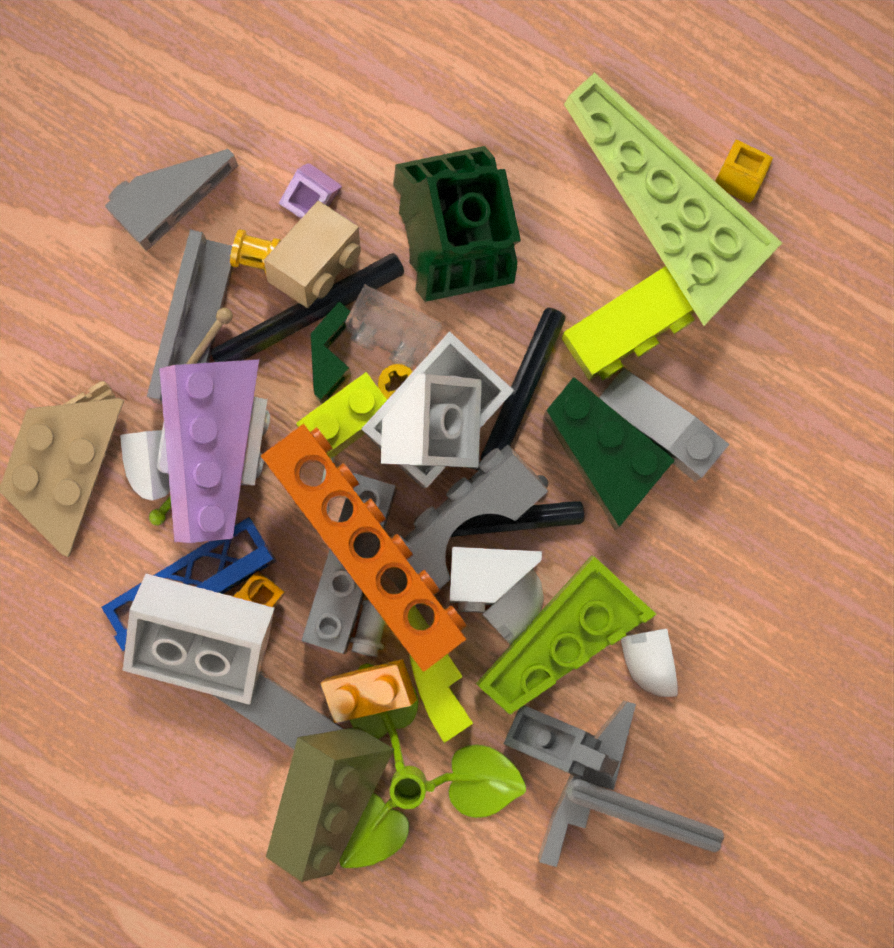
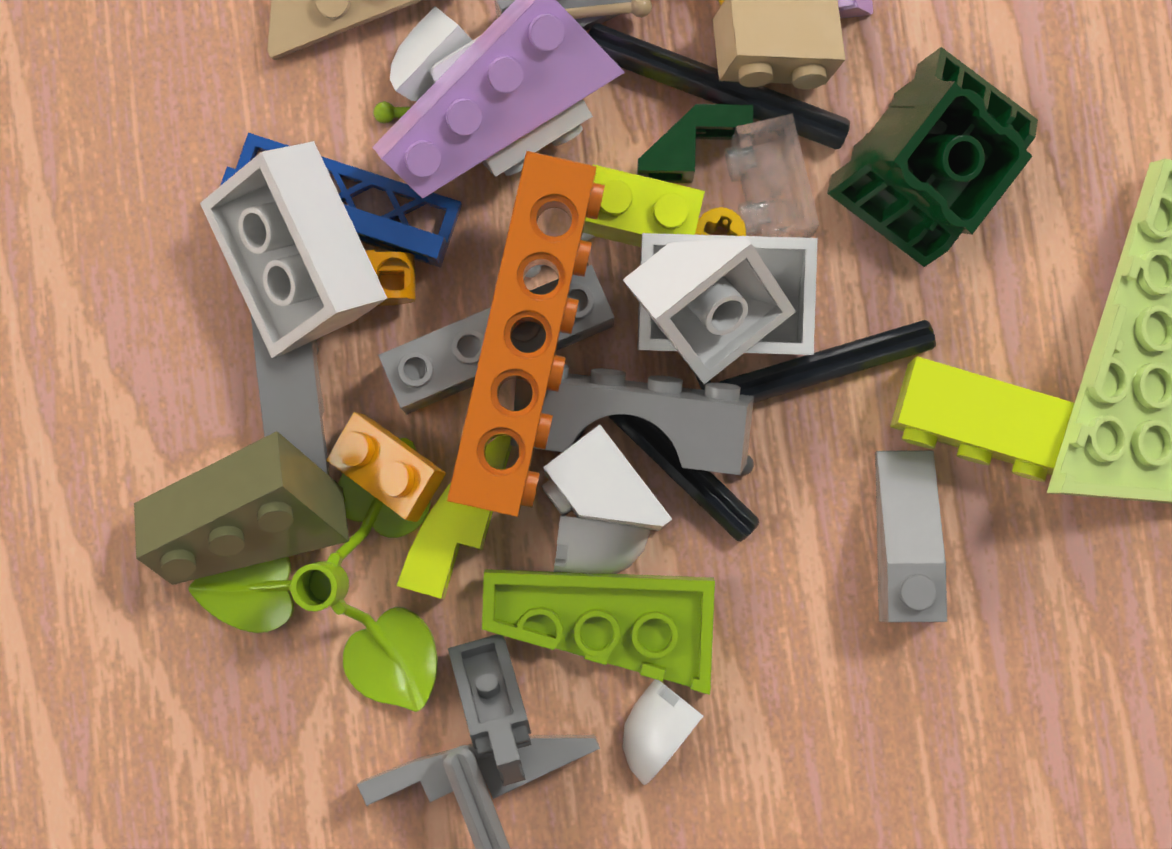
camera: 50 degrees right, 0 degrees up
(368, 631) = (443, 419): white pin -> none
(606, 450) = (834, 501): dark green wedge -> none

